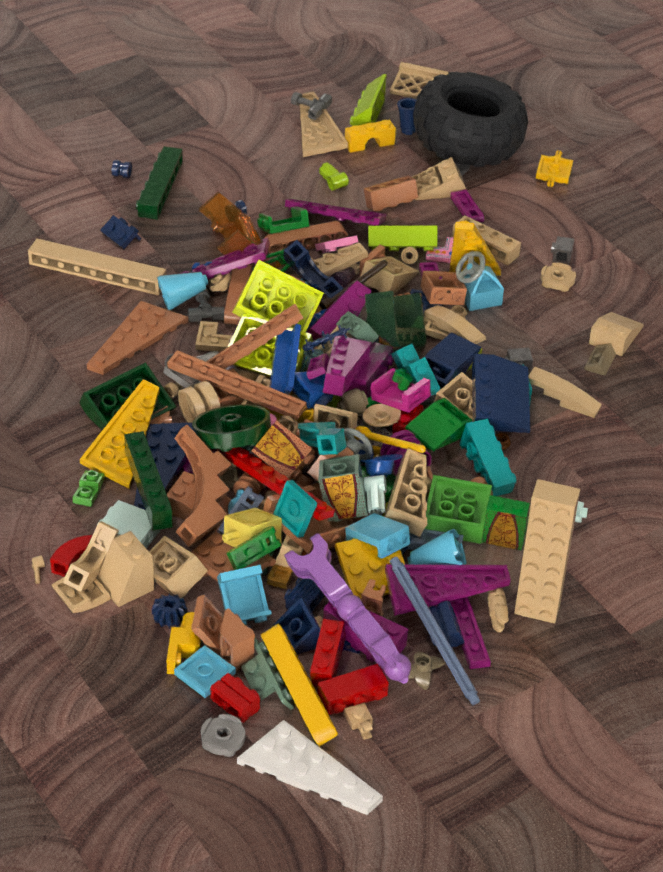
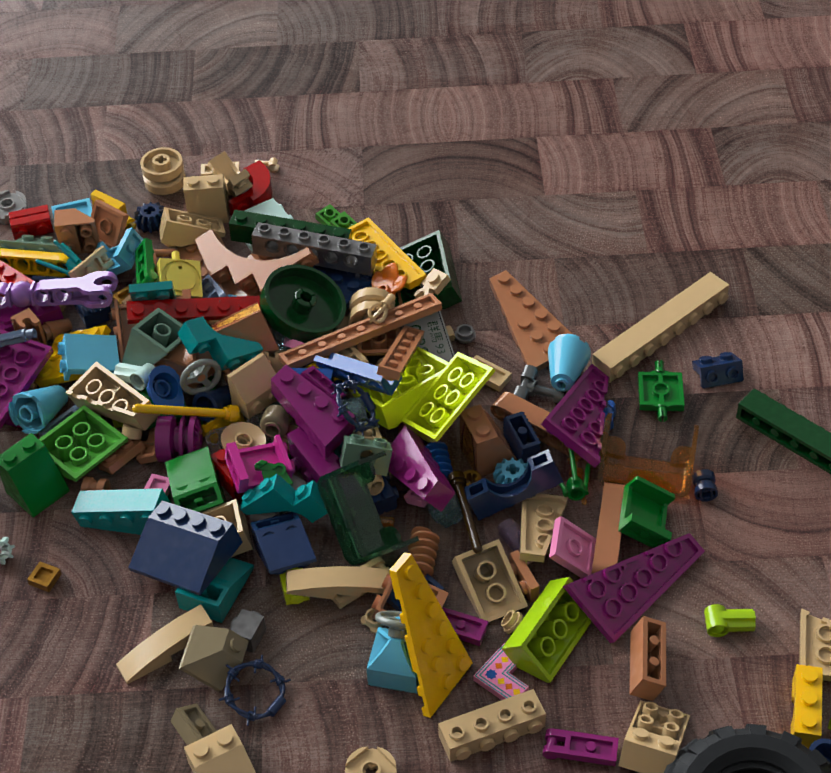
camera: 125 degrees right, 5 degrees up
(102, 629) = (163, 171): none -> tan wheel
(149, 374) = (433, 283): none -> tan plate
(160, 404) = (389, 279): none -> orange plate
(162, 251) = (660, 391): none -> green plate
(162, 450) = (330, 250): none -> flat silver brick
(204, 376) = (384, 306): none -> tan piece
(275, 595) = (95, 262): none -> tan plate
(278, 614) = (71, 263): none -> teal plant
(449, 459) = (158, 481): none -> bright pink plate
(551, 358) = (209, 652): none -> dark tan slope
(555, 332) = (252, 715): none -> dark blue piece
(571, 478) = (44, 576): none -> pearl gold plate

